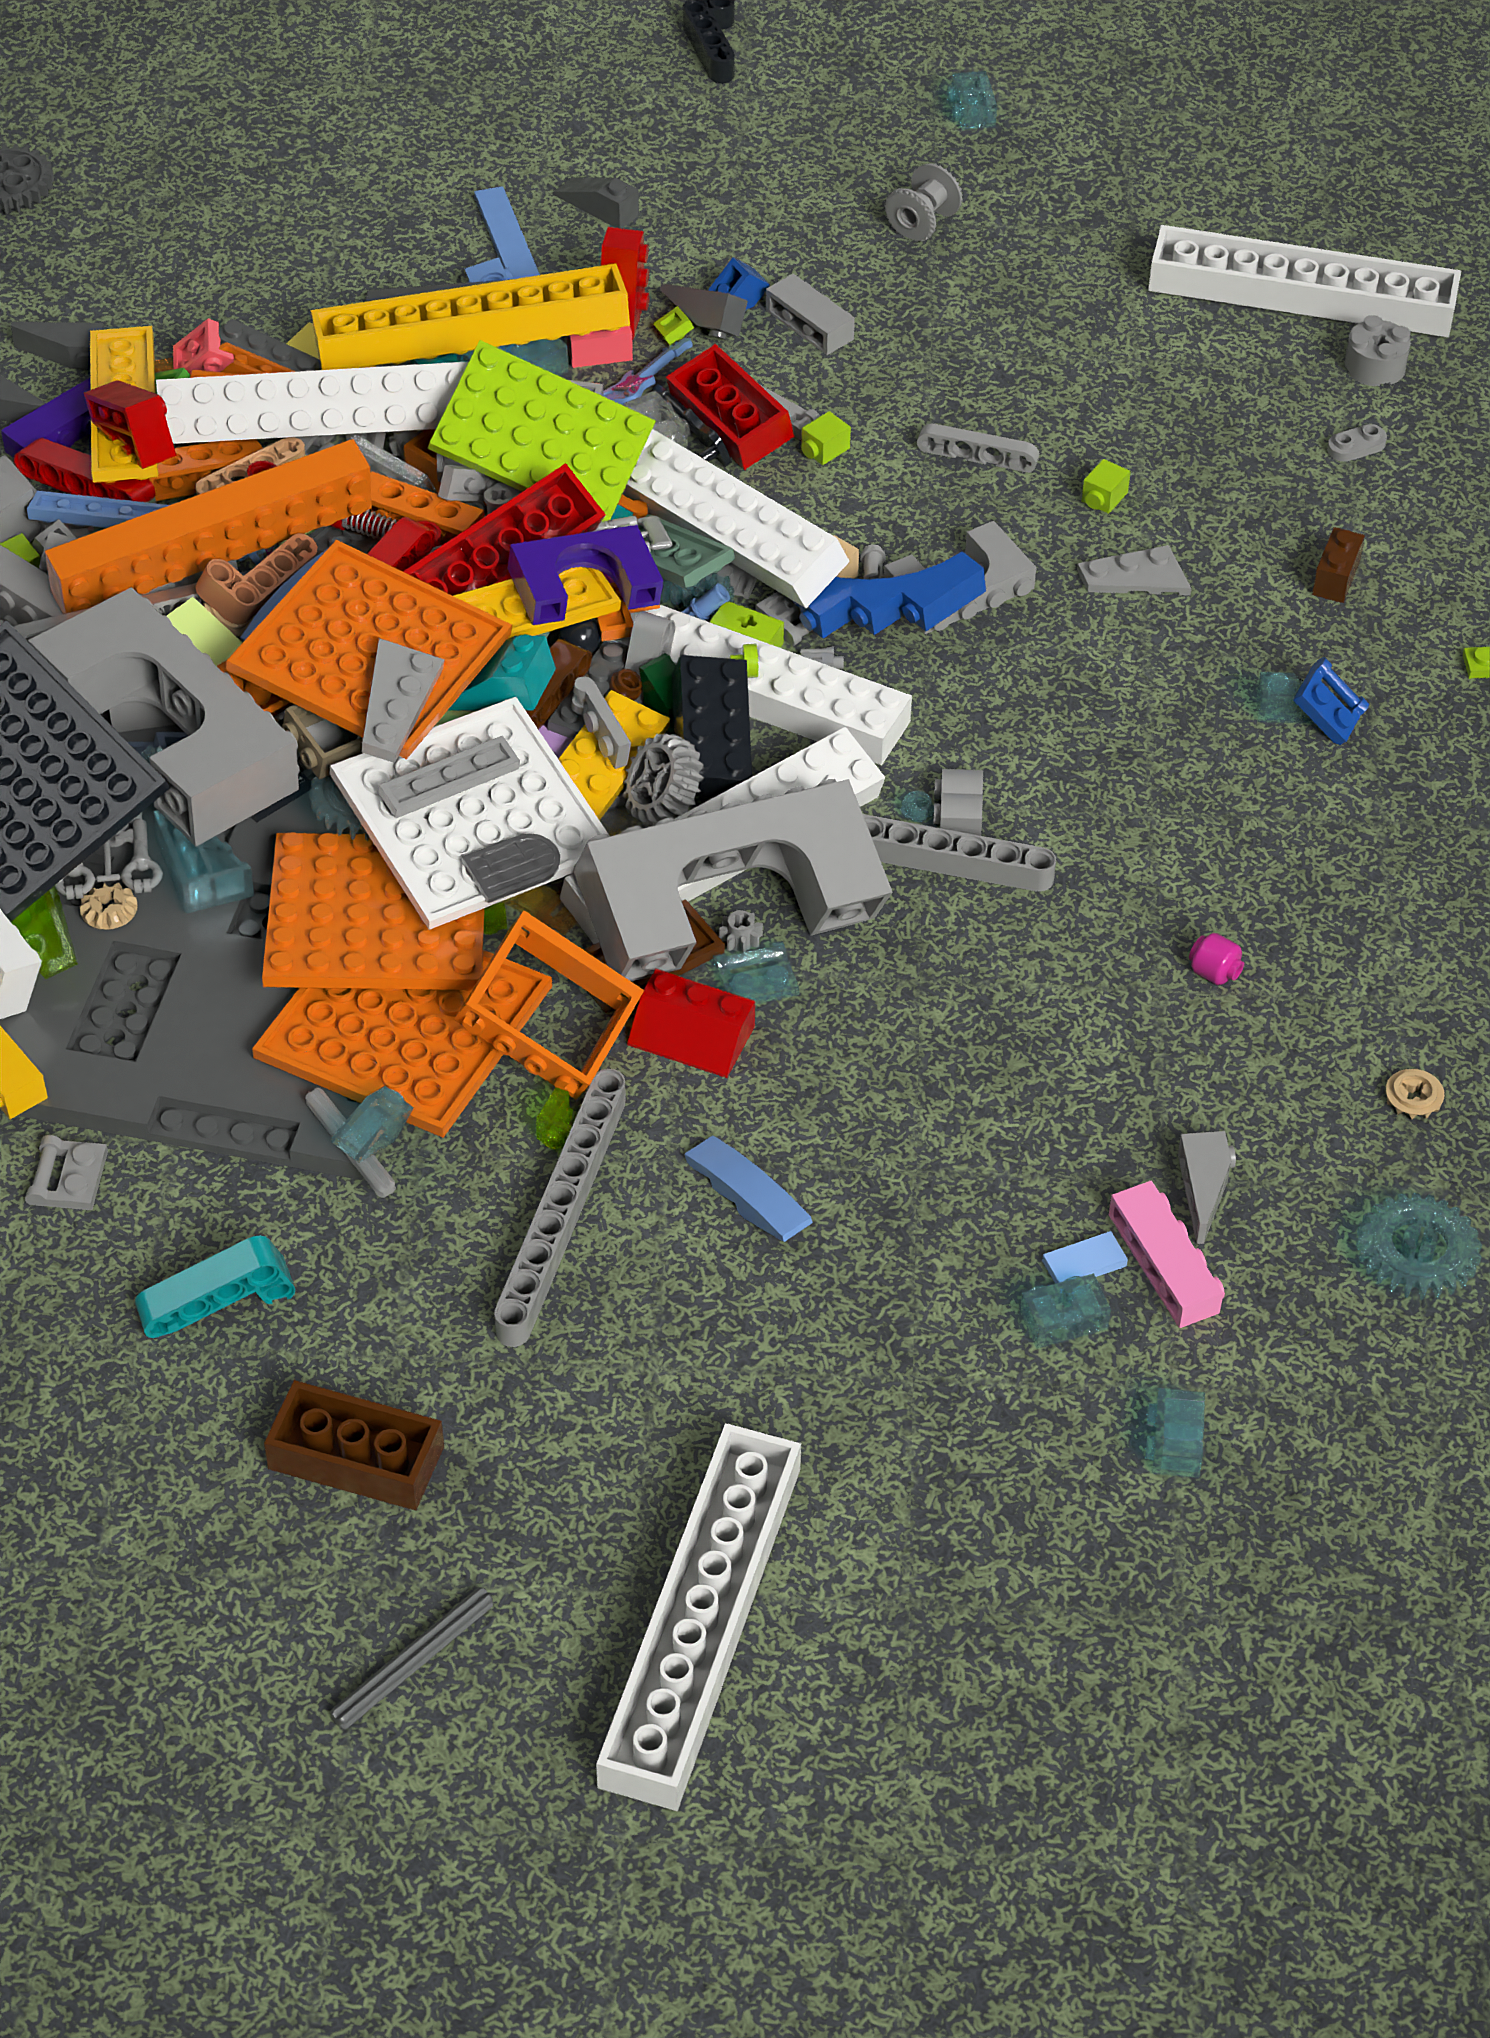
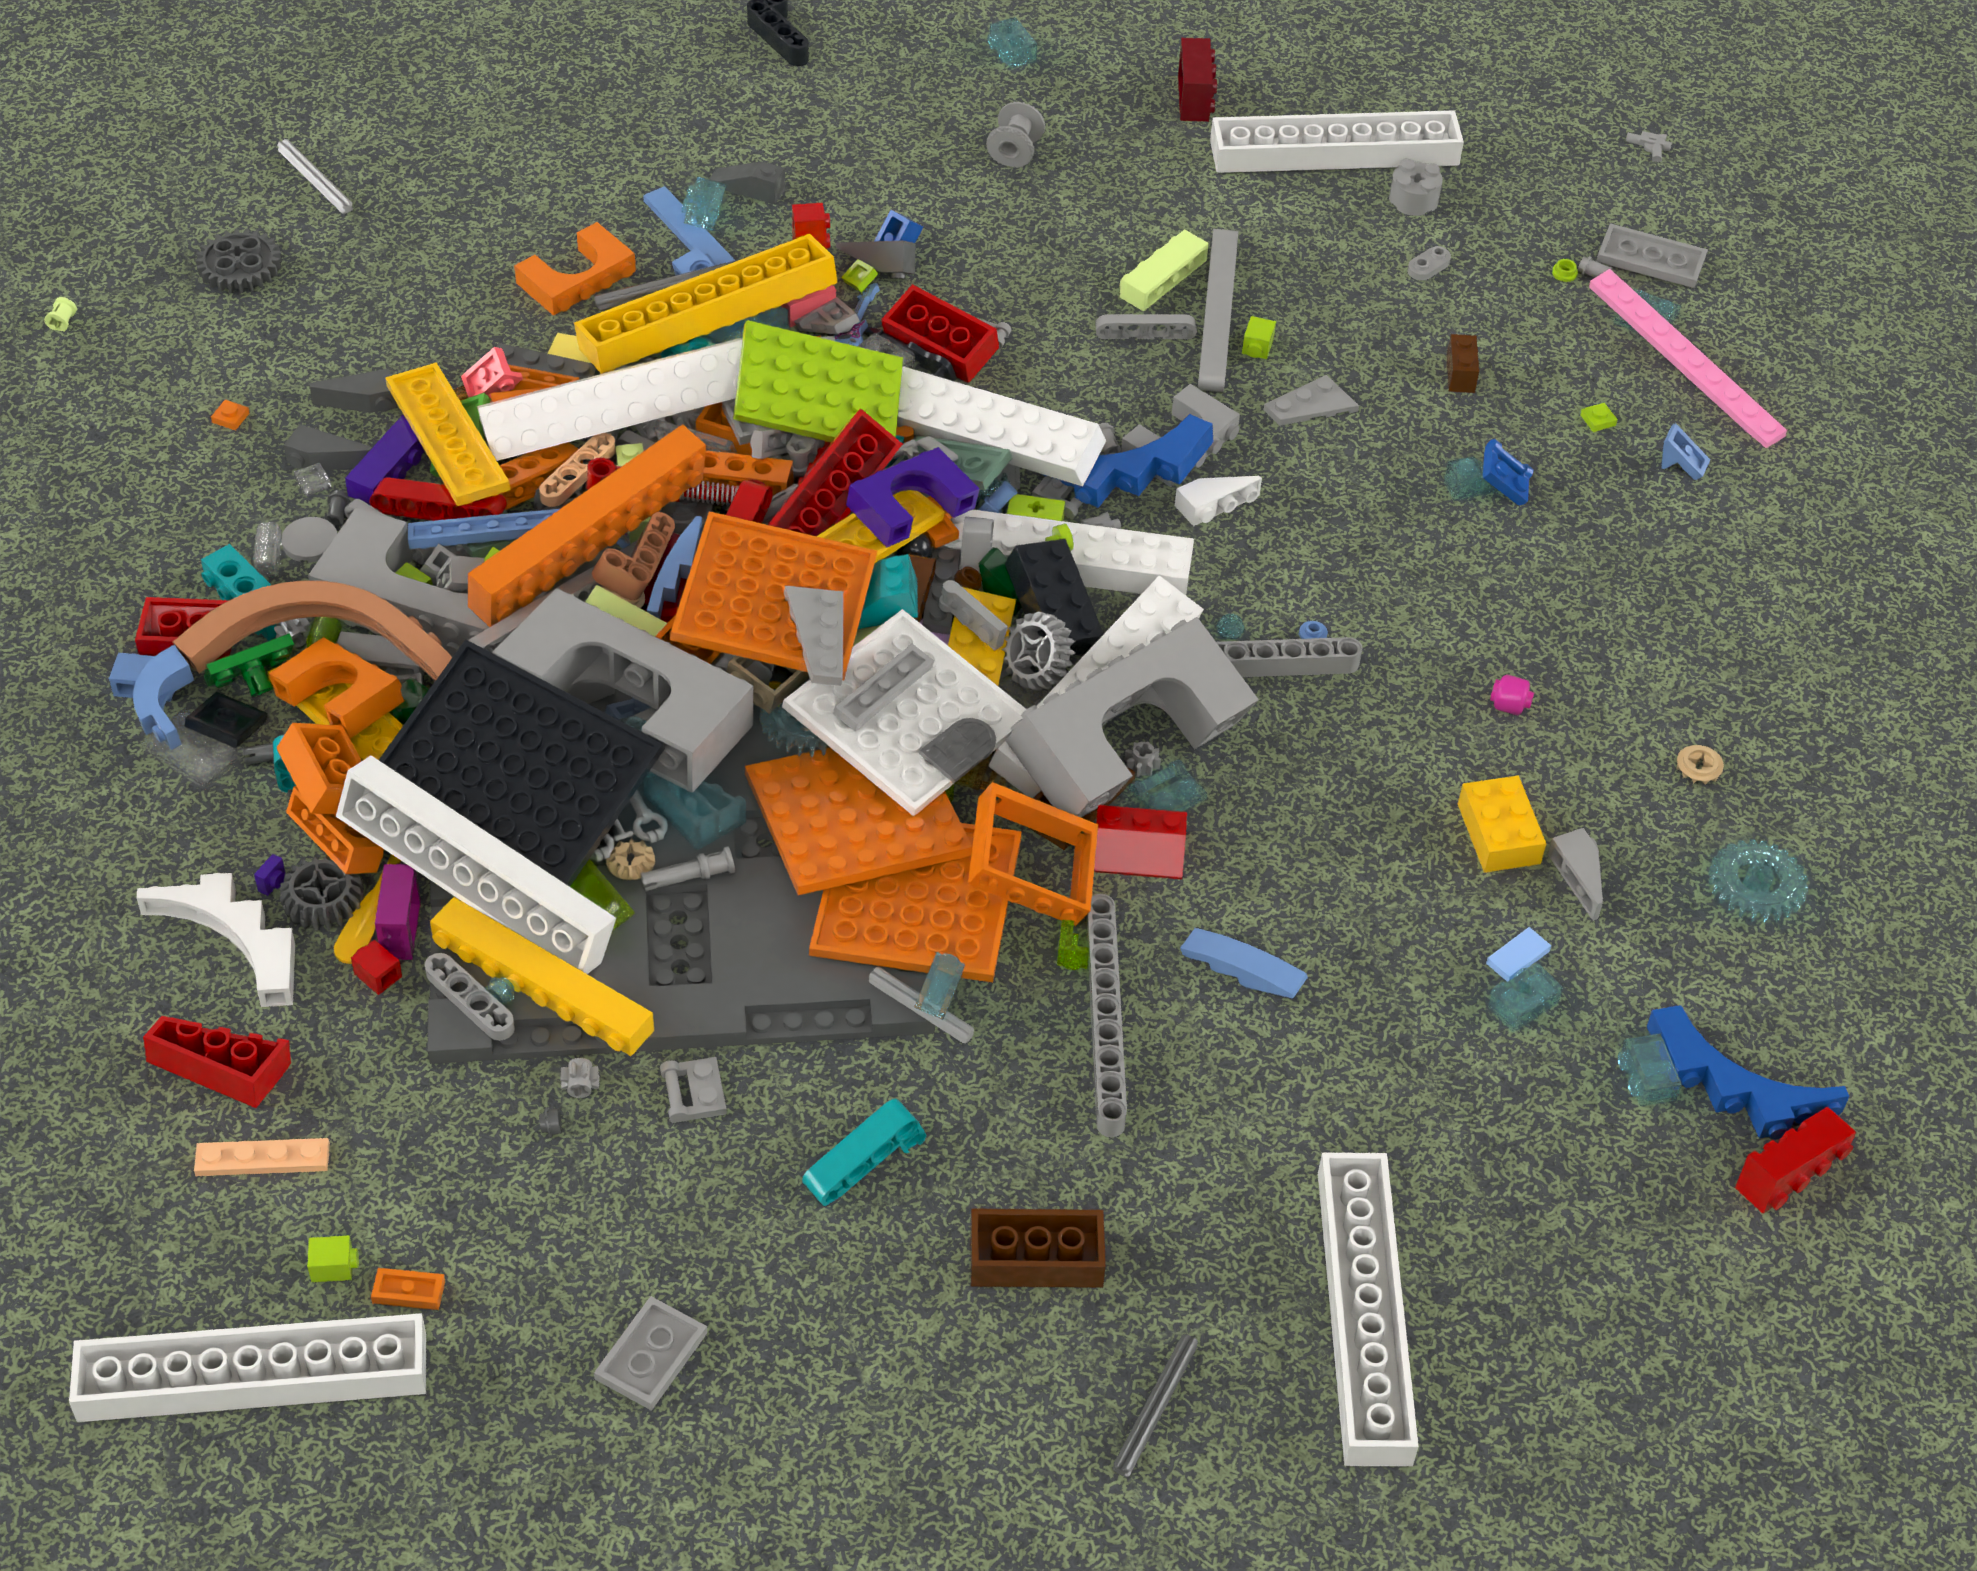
camera: 20 degrees left, 0 degrees up
(130, 105) = (315, 176): none -> axle
(134, 419) = (475, 444): red wedge -> none
(181, 932) = (703, 866): none -> light grey pin
(334, 277) = (560, 290): none -> orange arch
(533, 212) = (703, 203): none -> clear light blue brick
(613, 366) = (829, 318): none -> light grey wing
(810, 314) = (964, 244): light grey brick -> none
(825, 438) = (1024, 344): lime brick -> none
(960, 800) = (1263, 614): light grey brick -> none
(964, 654) = (1209, 497): none -> white slope
(1005, 830) = (1307, 628): none -> medium blue plate
(1029, 387) = (1163, 270): none -> yellowish green brick
(1071, 445) = (1218, 311): none -> light grey beam
(1131, 1104) = (1501, 824): none -> yellow brick
(1166, 178) = (1196, 79): none -> dark red piece
(1166, 1254) = (1578, 934): bright pink brick -> none
(1271, 1480) = (1730, 1087): none -> blue arch
(1305, 1582) = (1793, 1160): none -> red wedge

